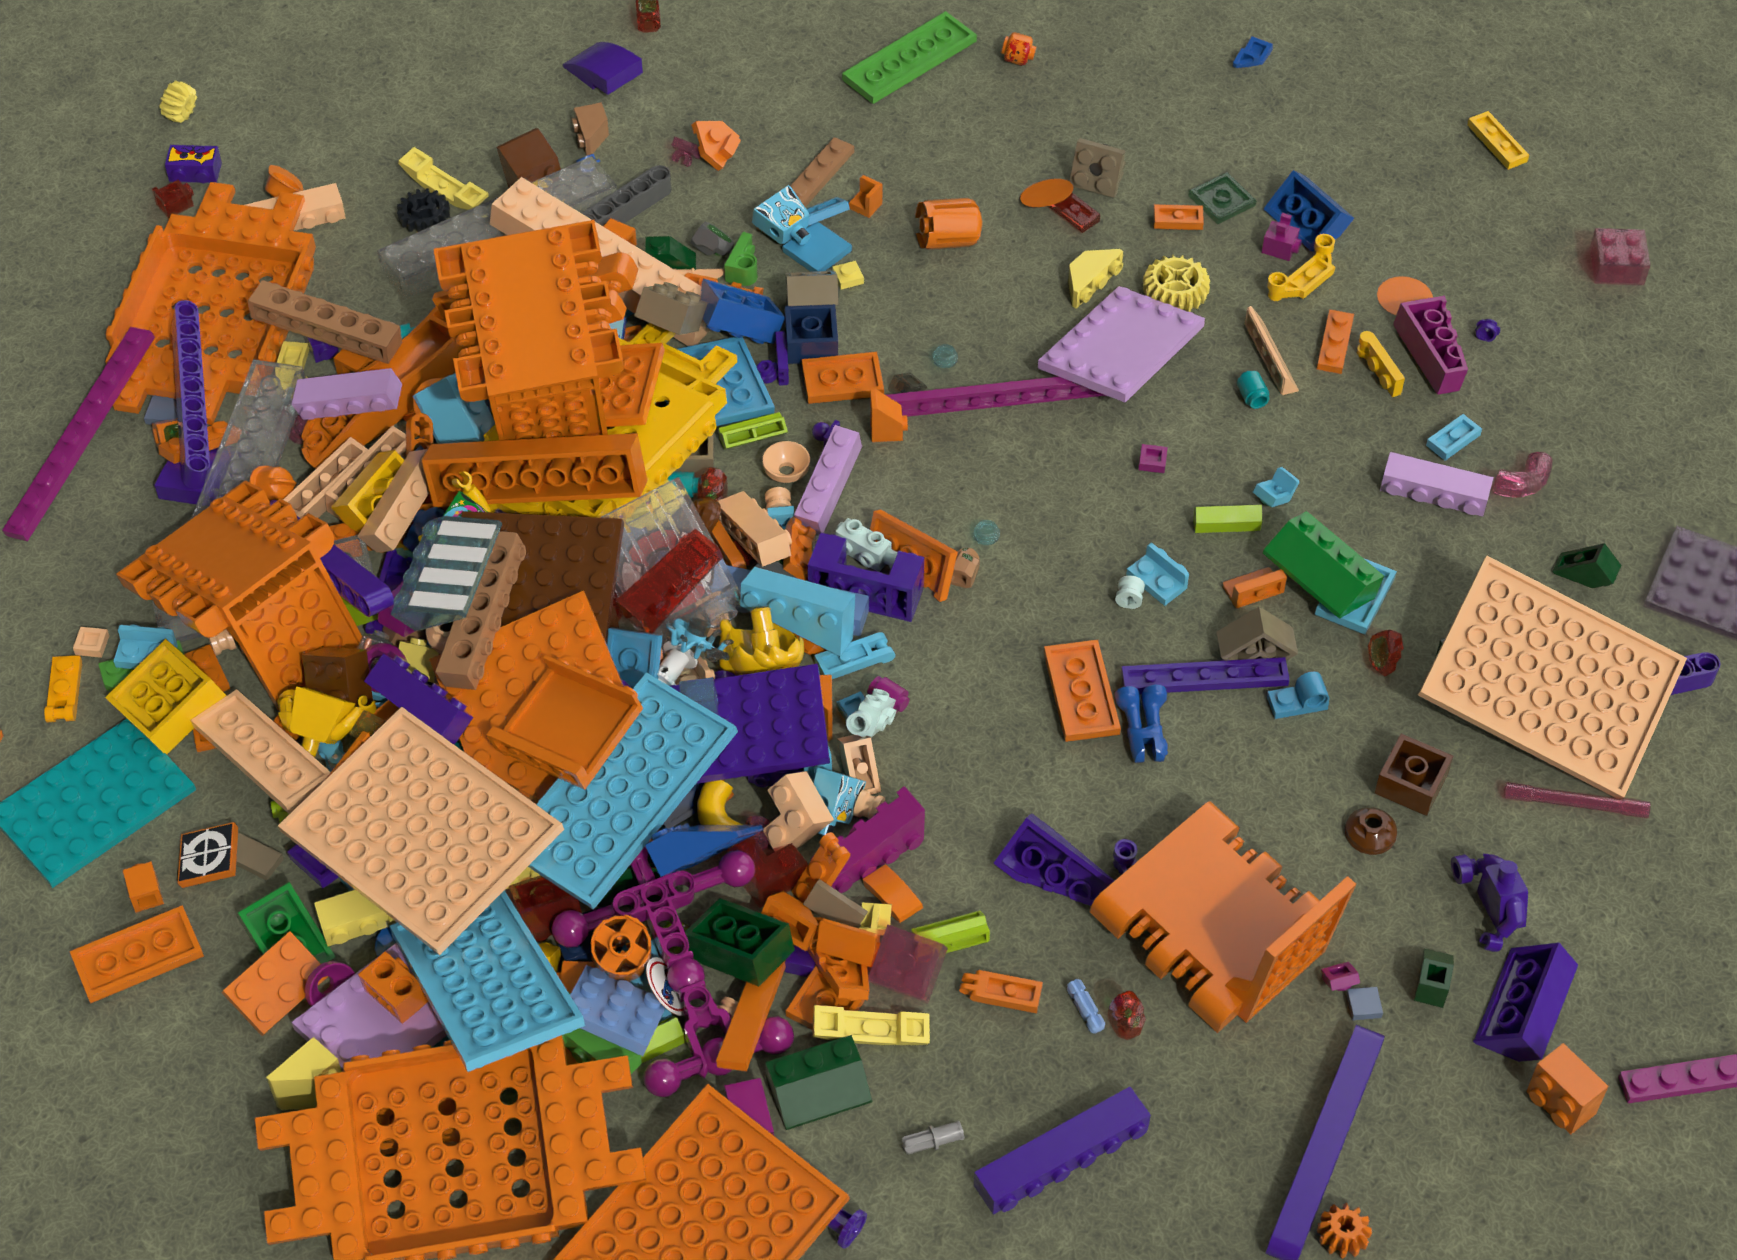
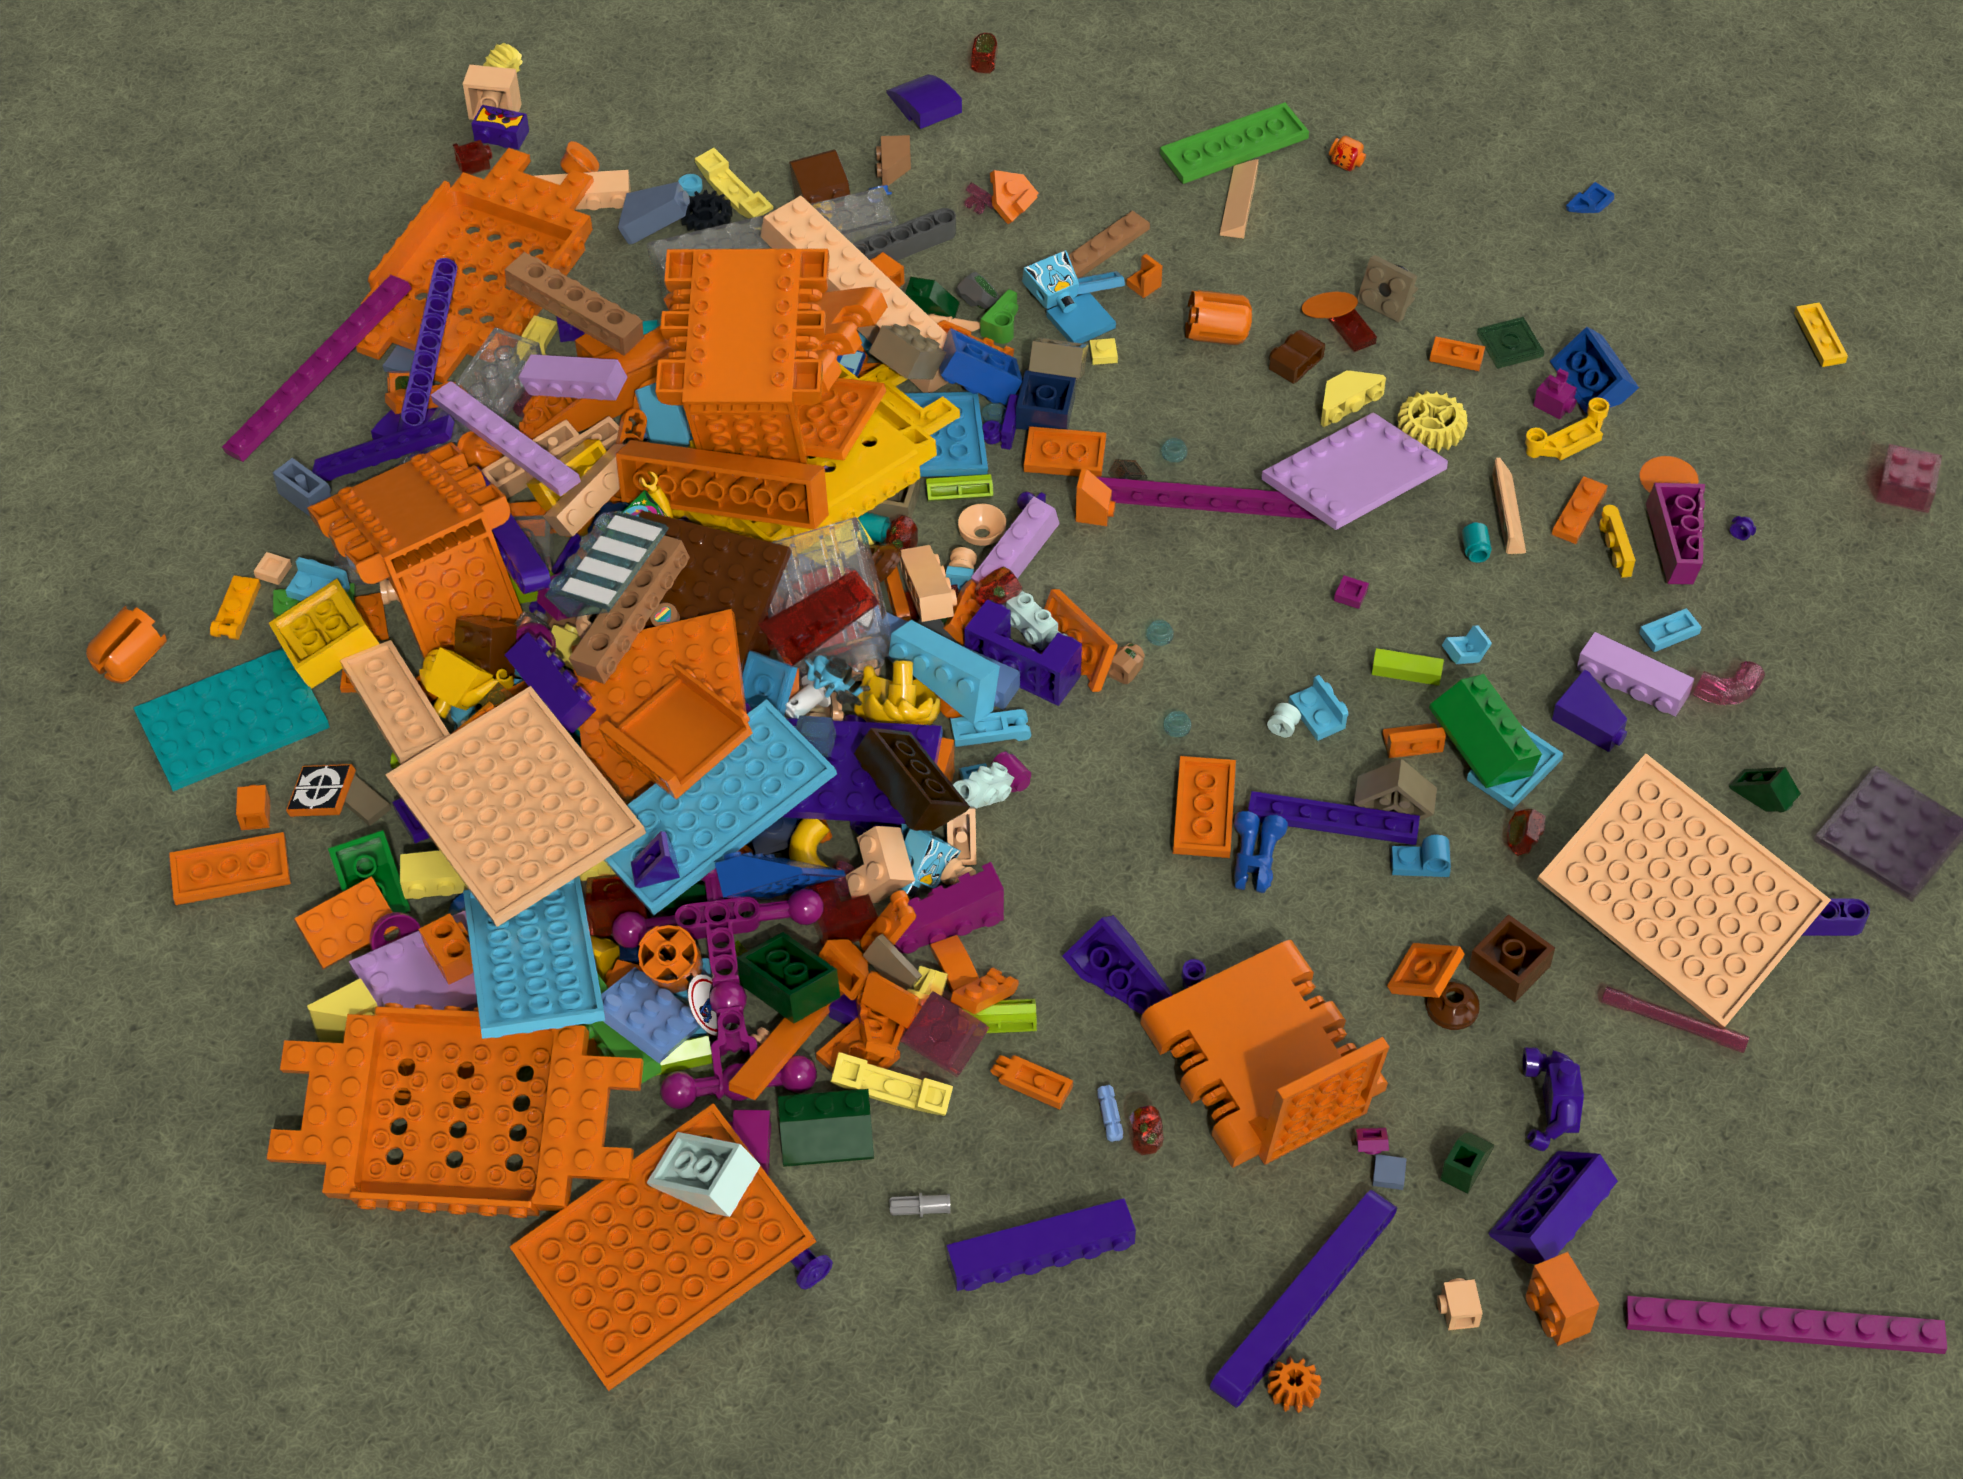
camera: 15 degrees right, 0 degrees up
(98, 554) = (300, 485): none -> sand blue brick
(173, 501) = (384, 449): none -> dark purple plate
(175, 127) = (492, 88): none -> light nougat brick
(299, 466) = (506, 438): none -> lavender plate
(371, 218) = (652, 210): none -> sand blue slope
(398, 187) = (691, 183): none -> medium azure tile
(515, 610) = (664, 614): none -> tile
(583, 857) = (655, 863): none -> dark purple slope
(721, 1155) = (705, 1172): none -> light aqua slope
(763, 352) = (994, 412): none -> clear light blue plate
(806, 722) = (910, 779): none -> dark brown slope
(824, 518) = (997, 587): none -> clear red rock
(930, 109) = (1239, 199): none -> light nougat slope
(932, 914) = (985, 991): none -> orange plate
(1030, 616) = (1177, 724): none -> clear light blue plate
(1031, 246) = (1296, 356): none -> reddish brown brick
(1339, 802) = (1425, 970): none -> orange plate
(1409, 529) = (1591, 713): none -> dark purple slope
(1472, 1115) = (1460, 1304): none -> light nougat brick

